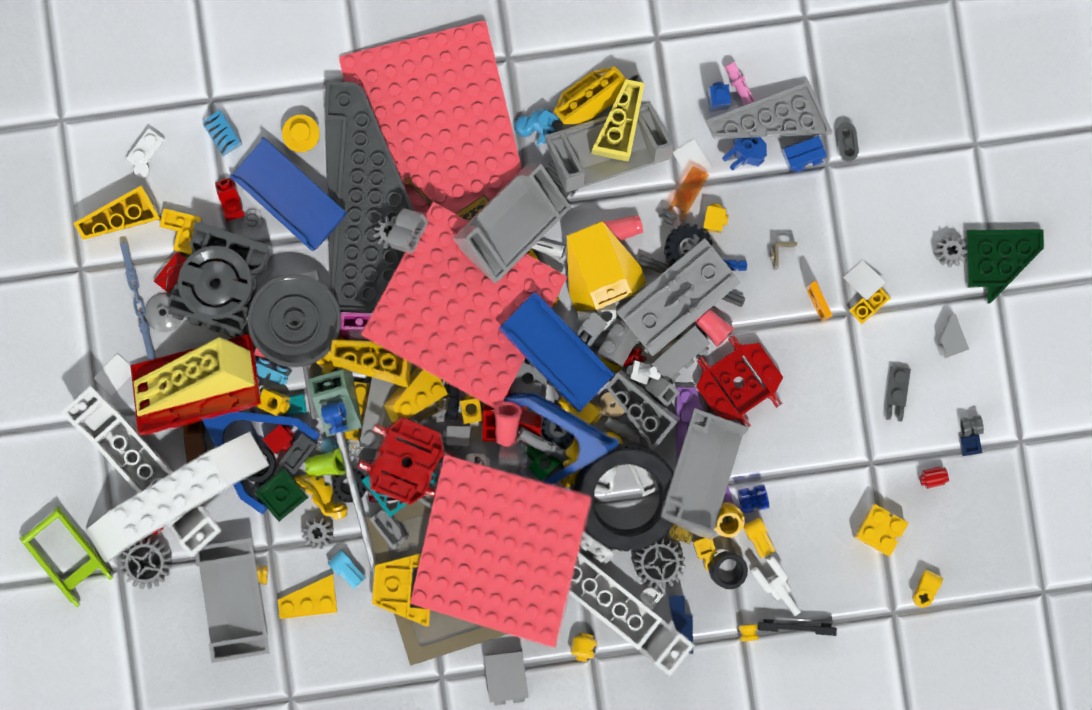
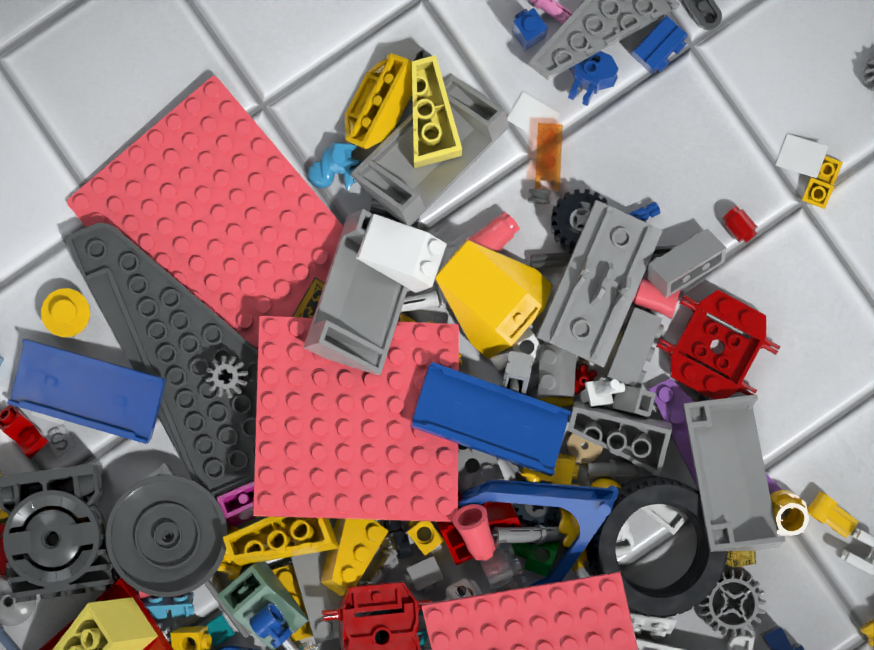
camera: 20 degrees left, 0 degrees up
(407, 231) = (246, 365): light grey brick -> none
(408, 181) = (217, 305): reddish brown hinge -> none
(552, 207) = (401, 252): none -> white slope
(704, 549) = (777, 561): yellow plate -> none
(715, 218) = (594, 171): yellow brick -> none
(718, 560) = (833, 571): black tyre -> none
(746, 313) = (686, 263): none -> light grey brick
(753, 499) = (803, 473): clear blue wheel -> none
(774, 254) = (684, 178): dark tan bracket -> none
(797, 306) = (740, 225): none -> red brick
(819, 301) = (763, 207): light orange tile -> none

